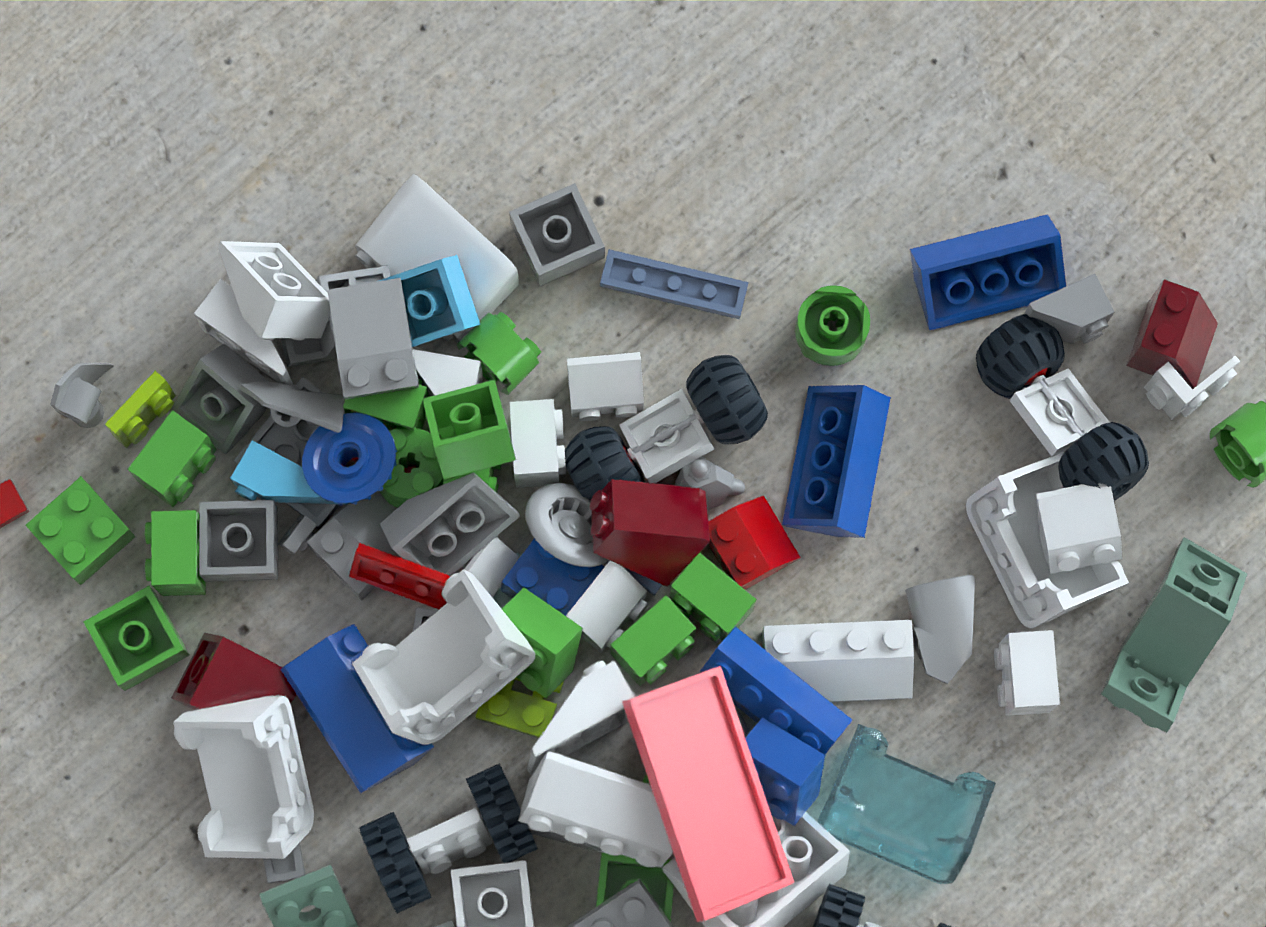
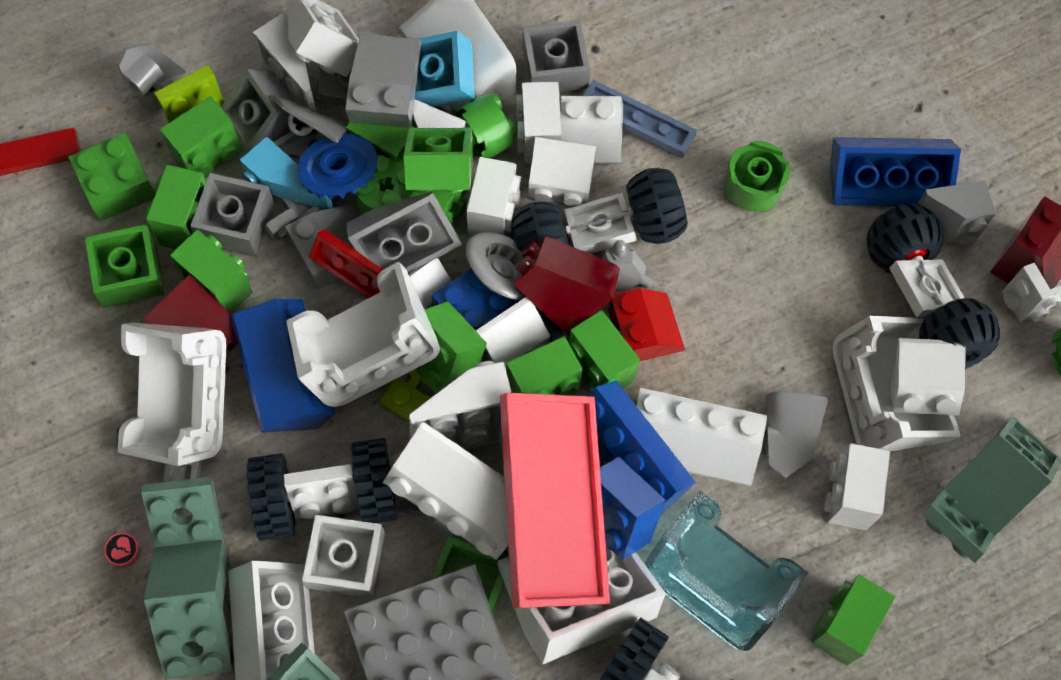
camera: 15 degrees right, 10 degrees down
(247, 622) = (213, 269): none -> bright green brick
(563, 326) = (537, 116): none -> white brick
(625, 318) = (594, 123): none -> white slope
(836, 460) = (734, 280): blue slope -> none
(1053, 822) = (853, 619): none -> bright green brick

